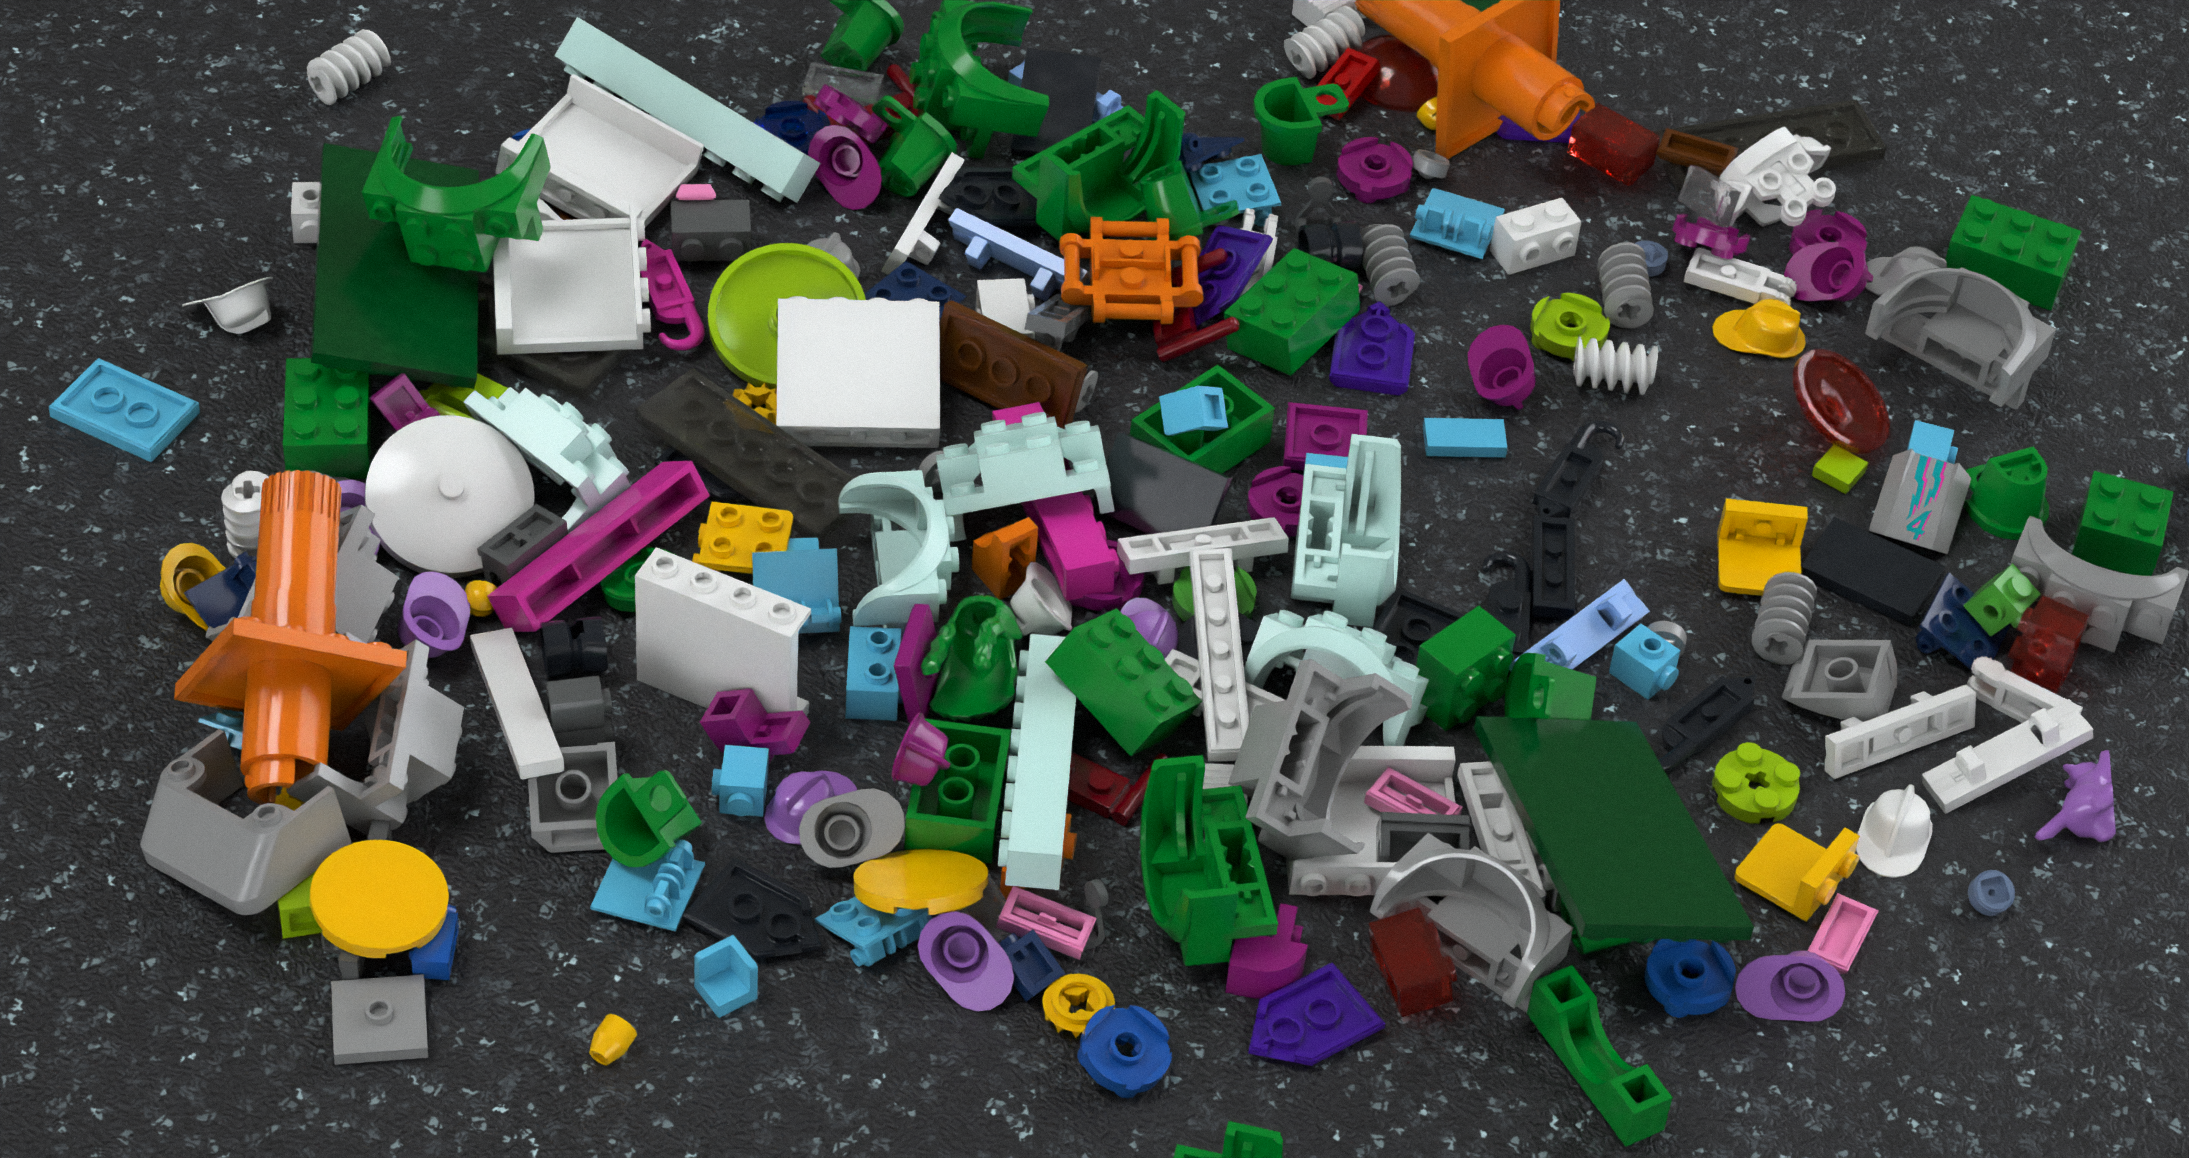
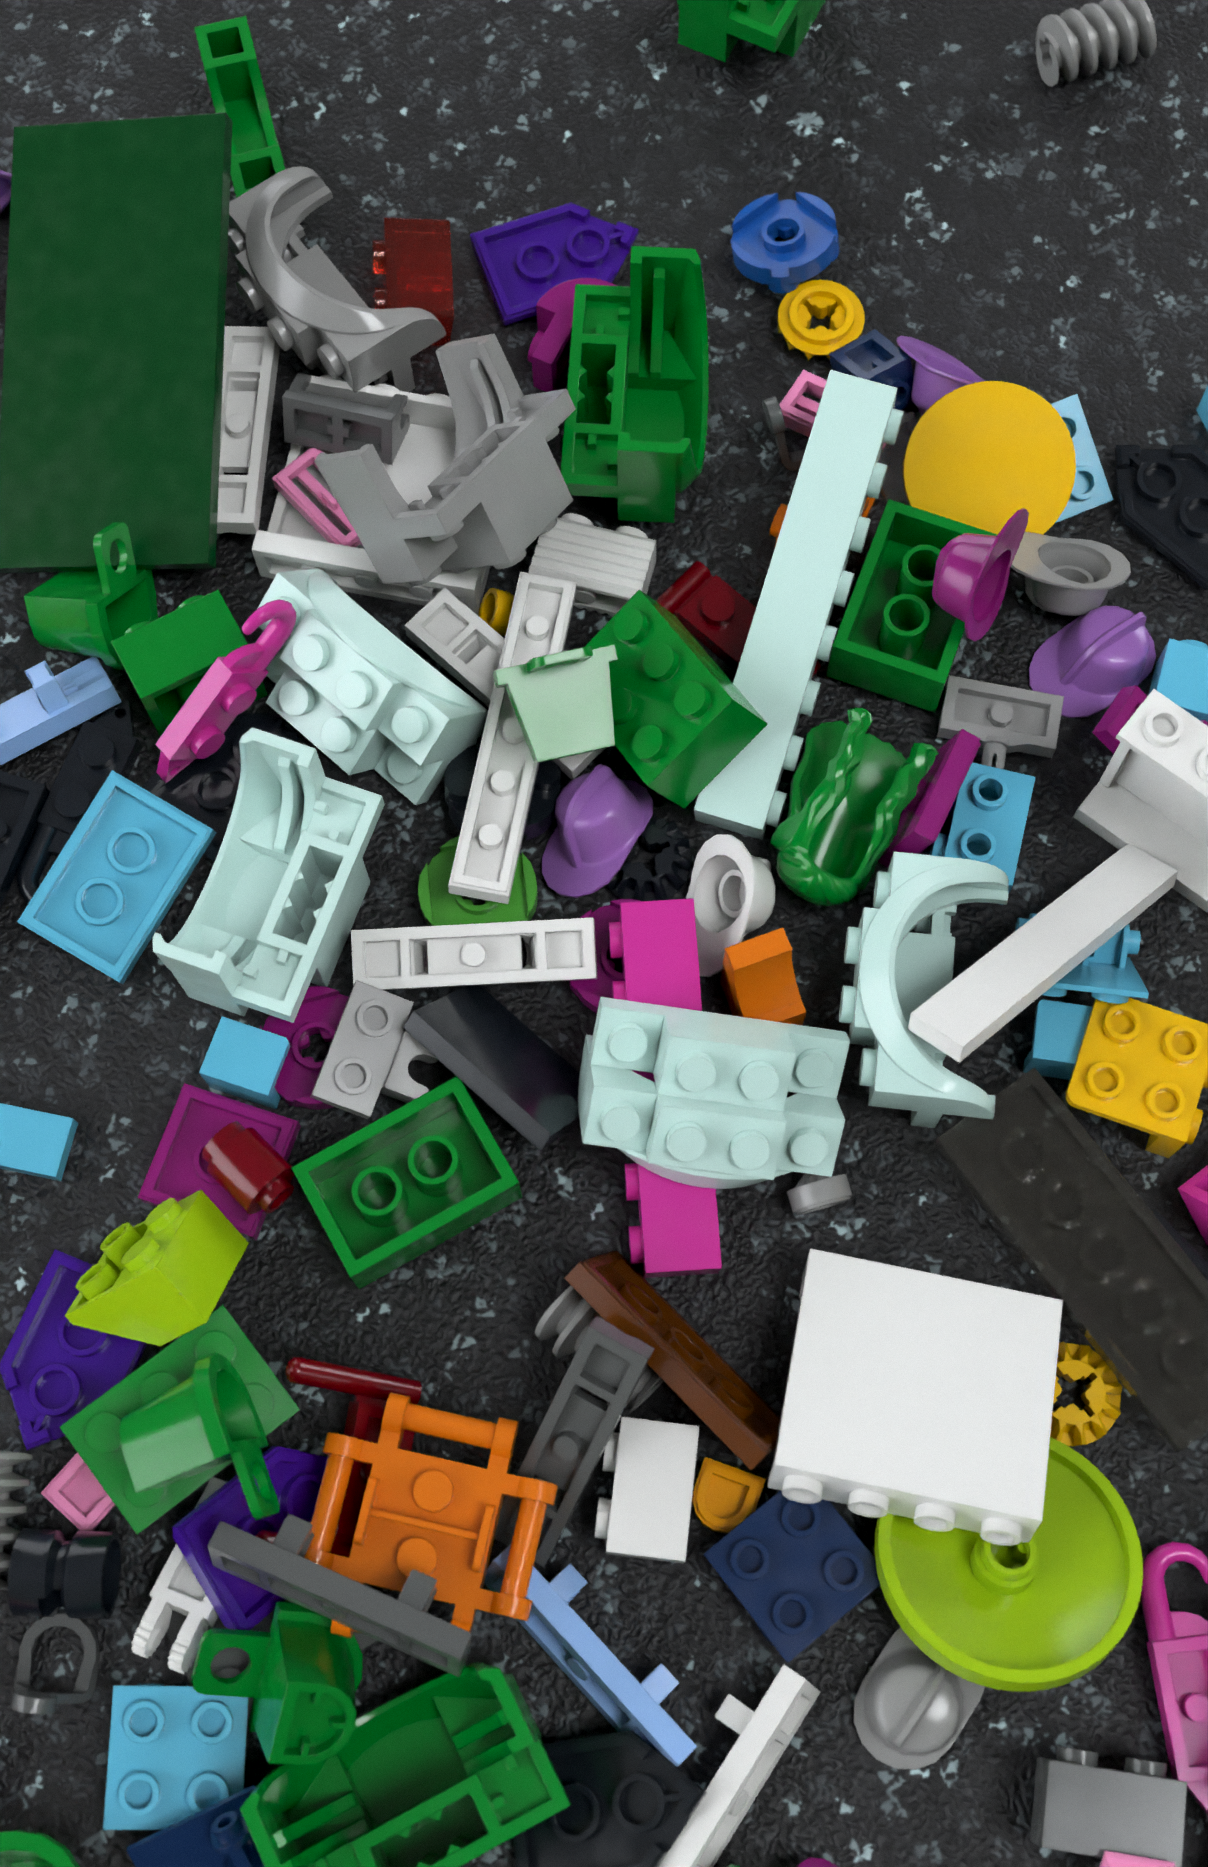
camera: 160 degrees left, 25 degrees up
(845, 539) = (1041, 952): none -> white tile
(867, 745) = (1002, 718): none -> light grey plate
(1167, 213) = (285, 1572): none -> dark grey hinge
(1193, 410) = (426, 1148): medium azure panel -> none
(1197, 638) = (563, 701): none -> container
(1252, 483) = (370, 1054): none -> light grey plate
(1268, 257) = (196, 1429): none -> green container
(1302, 414) = (248, 1168): none -> dark red brick
(1334, 361) = (160, 1273): none -> lime slope
(1420, 627) = (224, 692): none -> dark pink plate
(1459, 564) = (117, 877): none -> medium azure tile

